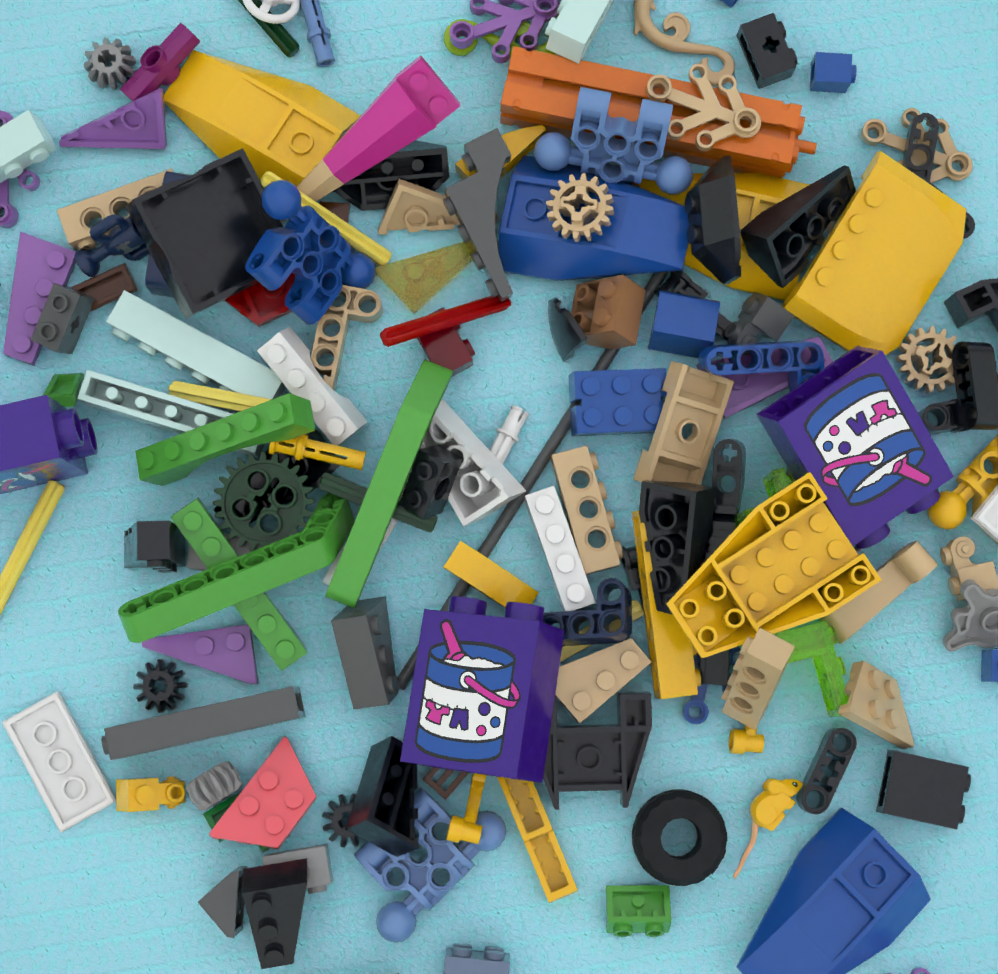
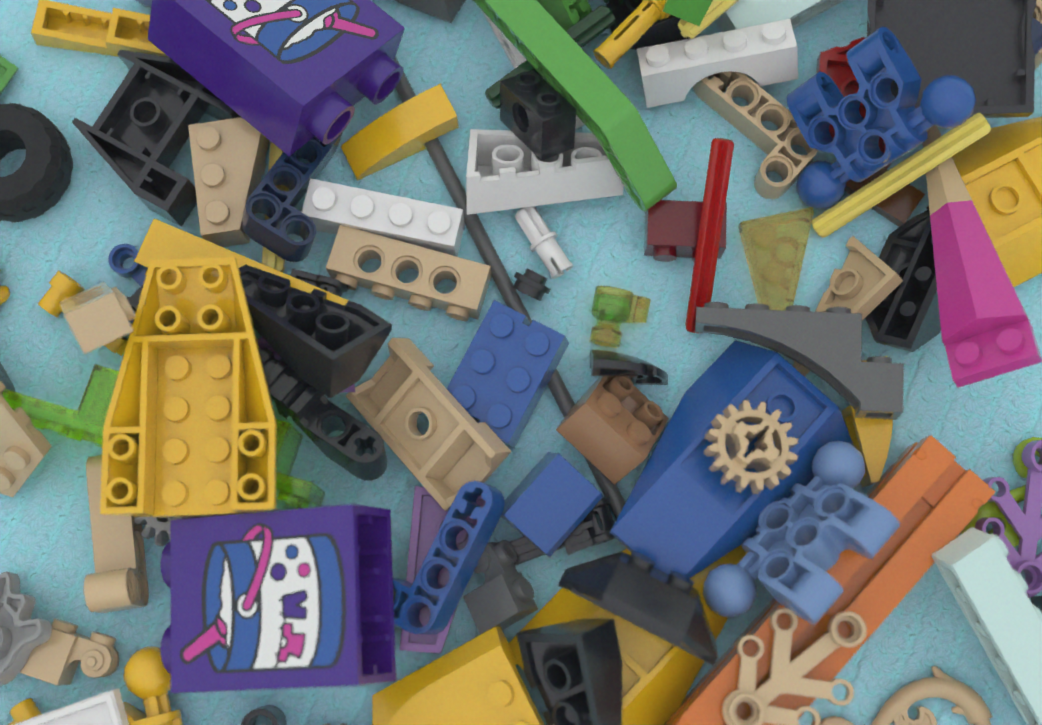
camera: 125 degrees right, 5 degrees down
(527, 361) = (612, 308): none -> clear yellow piece
(543, 424) = (531, 284): none -> black plate

